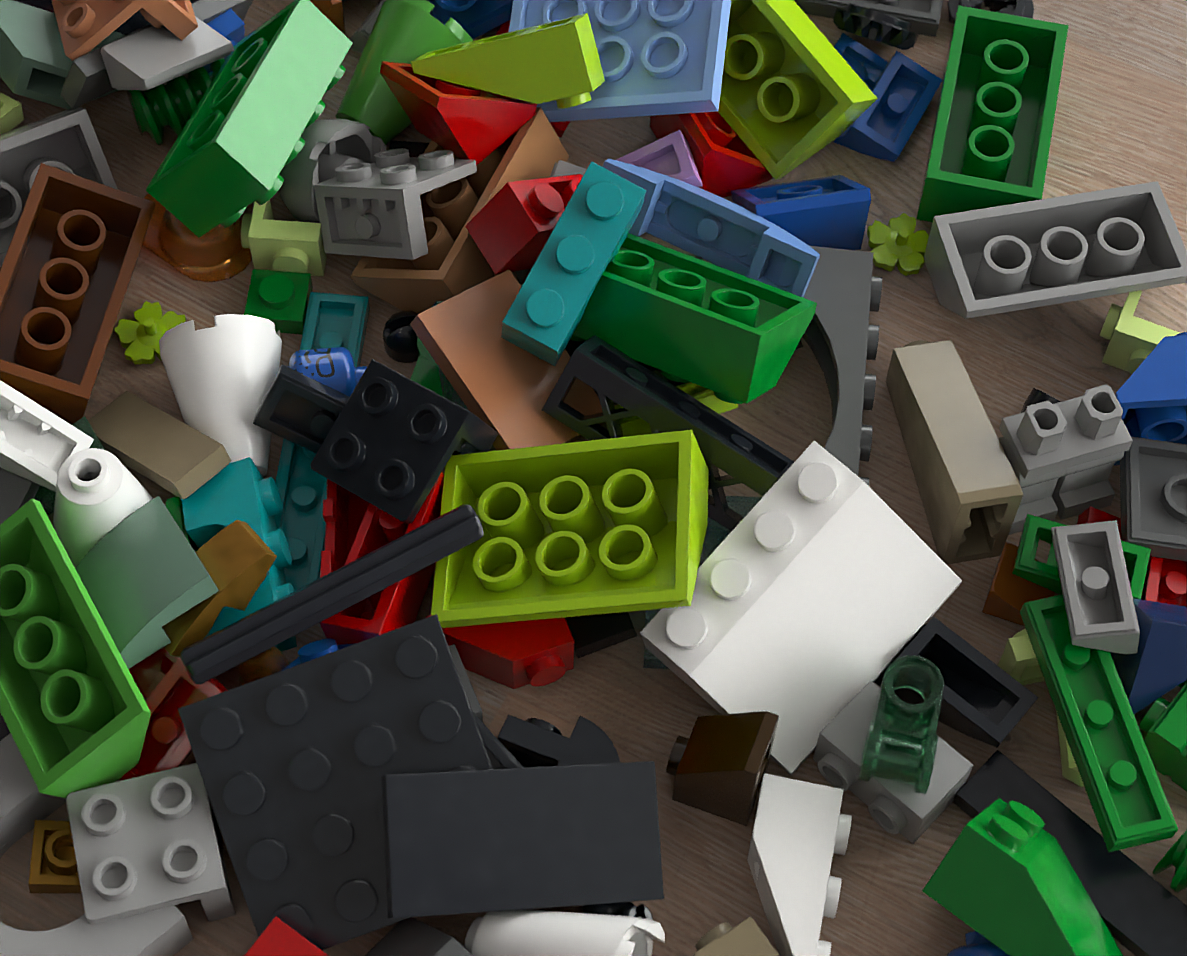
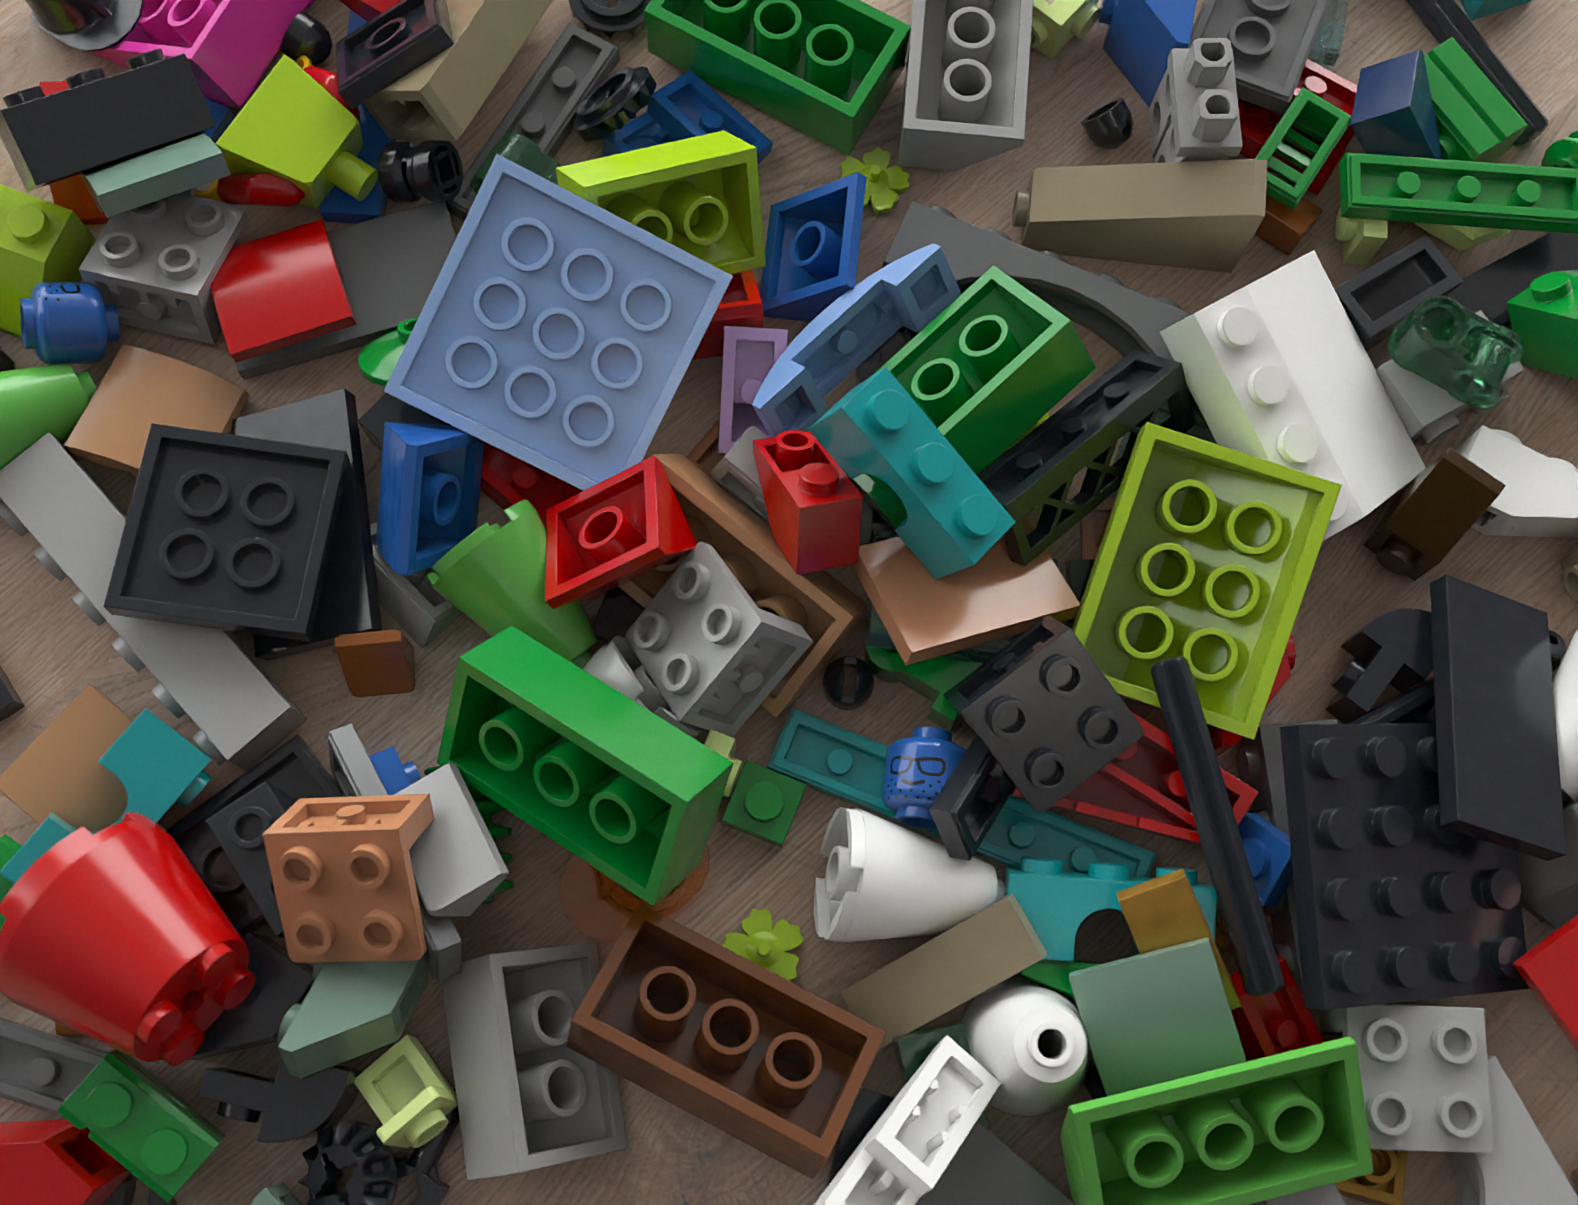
camera: 75 degrees left, 15 degrees up
(526, 64) = (608, 453): lime slope -> none
(1096, 587) = (1358, 138): light grey slope -> none

